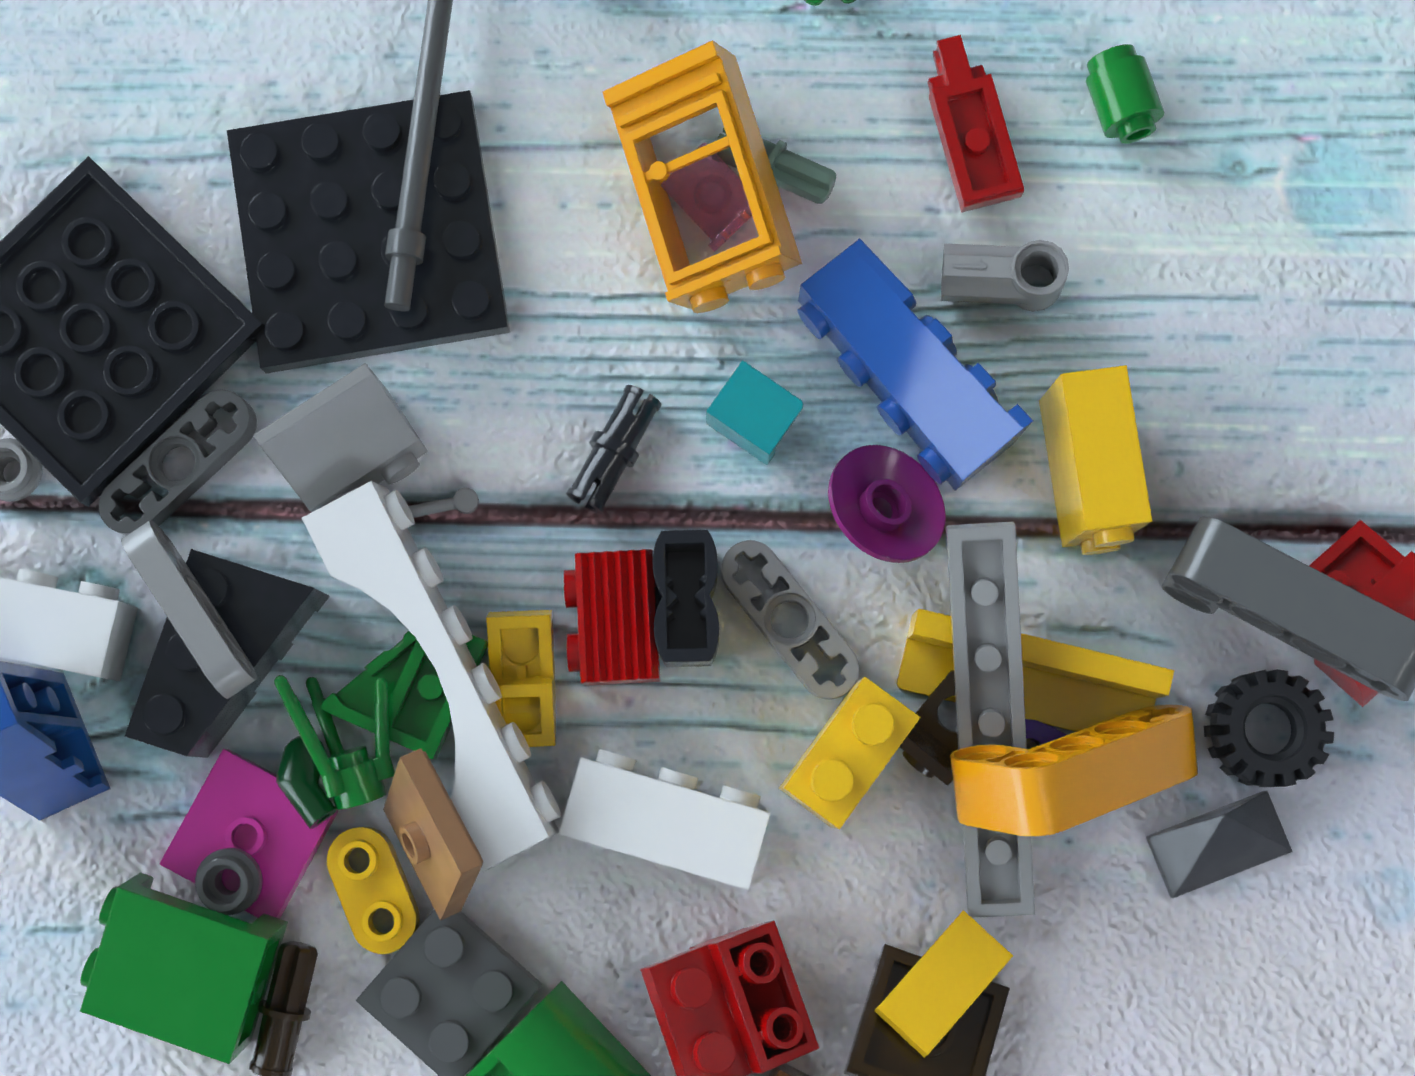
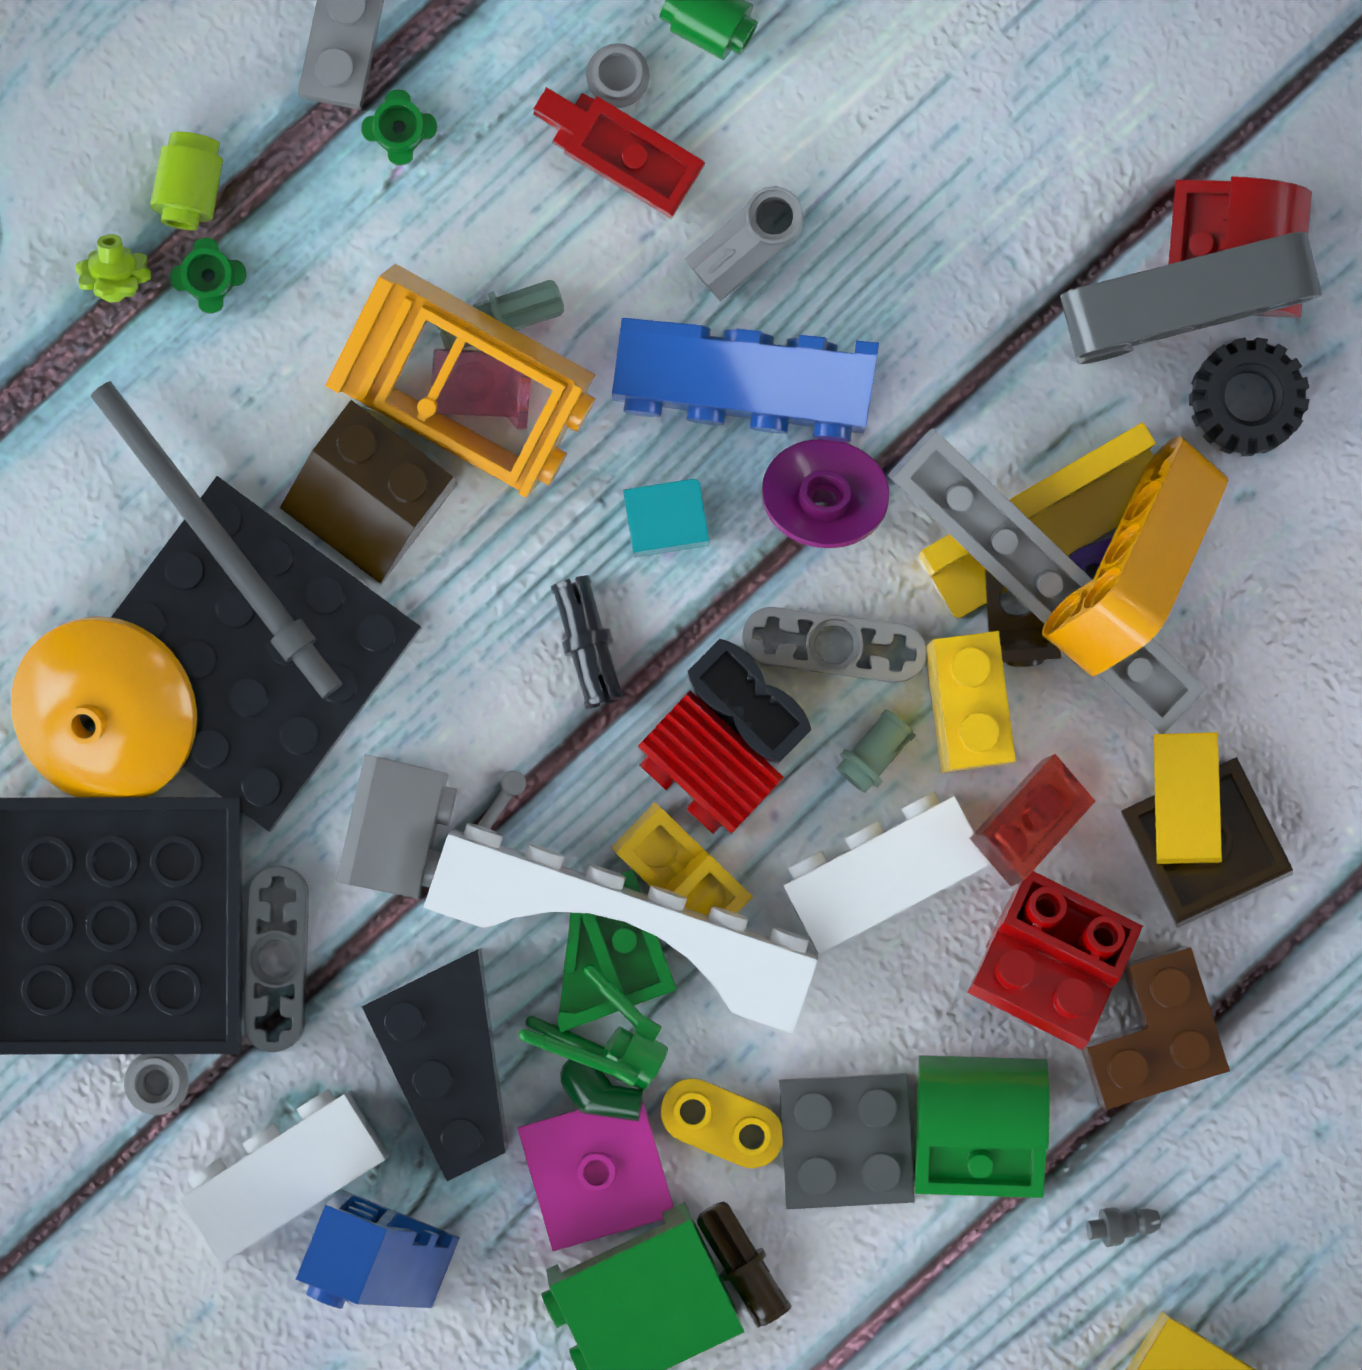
camera: 45 degrees left, 5 degrees up
(189, 609) = (411, 1046): light grey beam -> none
(212, 890) = (617, 1231): dark grey plate -> none
(250, 179) = (129, 690): none -> light orange dish
(432, 833) = (732, 1039): medium nougat plate -> none
(562, 197) = (367, 492): none -> dark brown slope
(745, 725) = (875, 751): none -> sand green pin
(811, 887) = (1032, 820): none -> clear red plate
(1020, 78) = (618, 75): none -> light grey plate
(1095, 459) = (946, 322): yellow brick -> none
(1219, 844) = (1290, 512): black slope -> none

